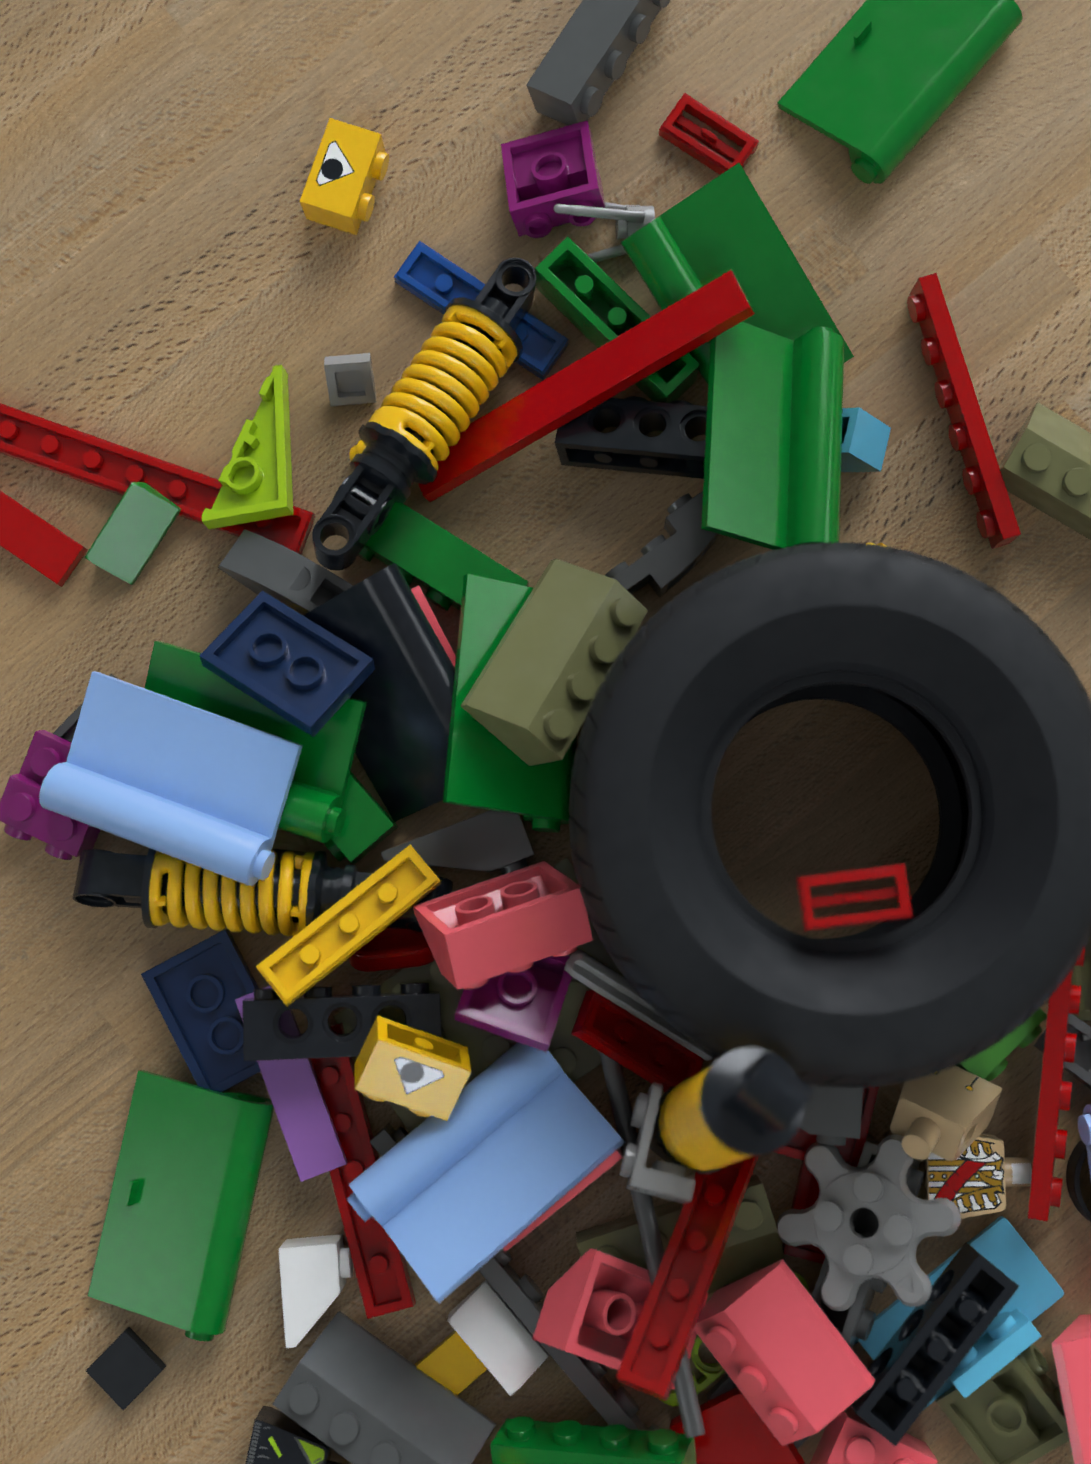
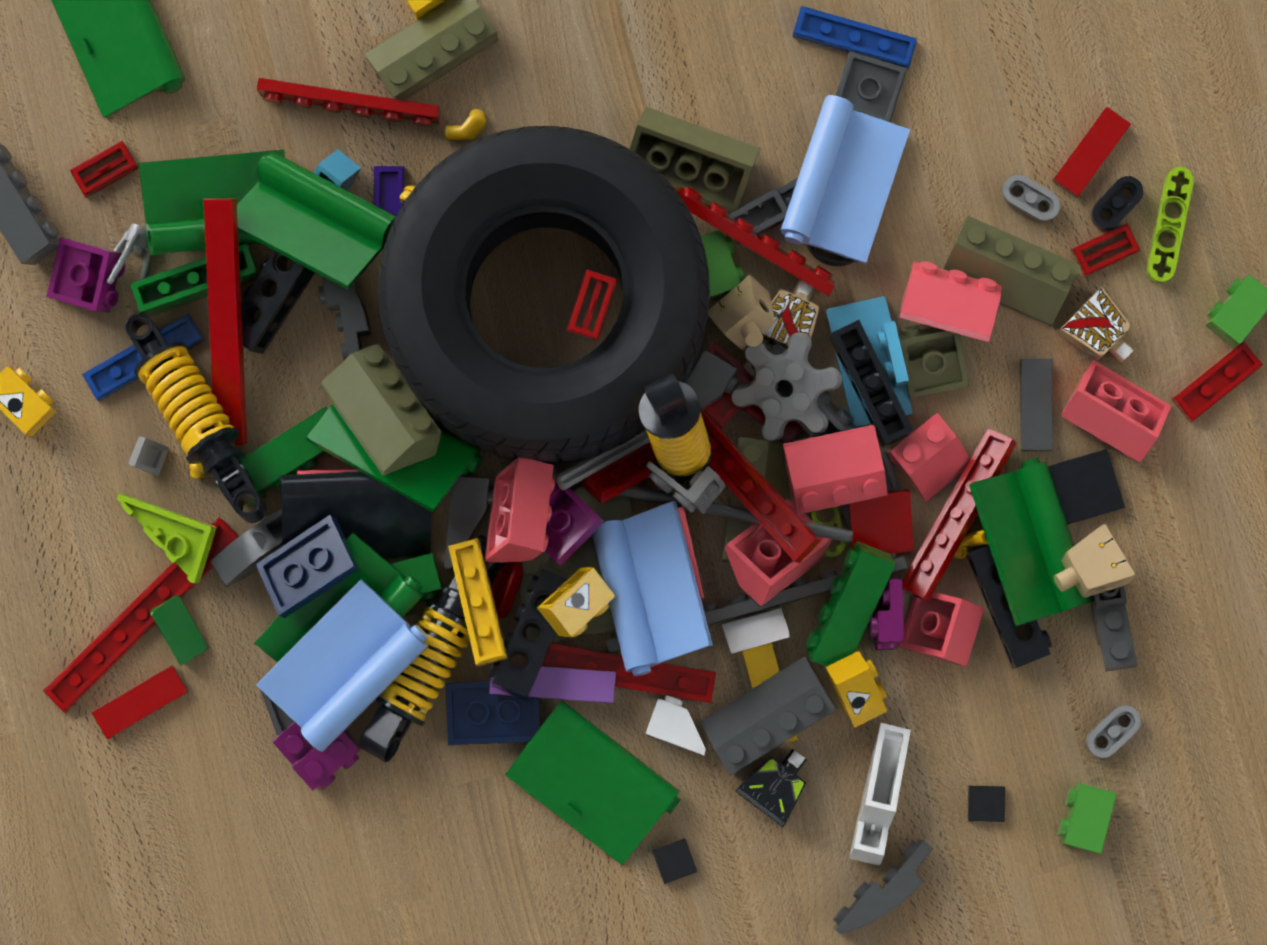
camera: 70 degrees left, 0 degrees up
(873, 521) = (388, 186): none -> dark purple tile
(1023, 595) = (469, 129): none -> yellow arm

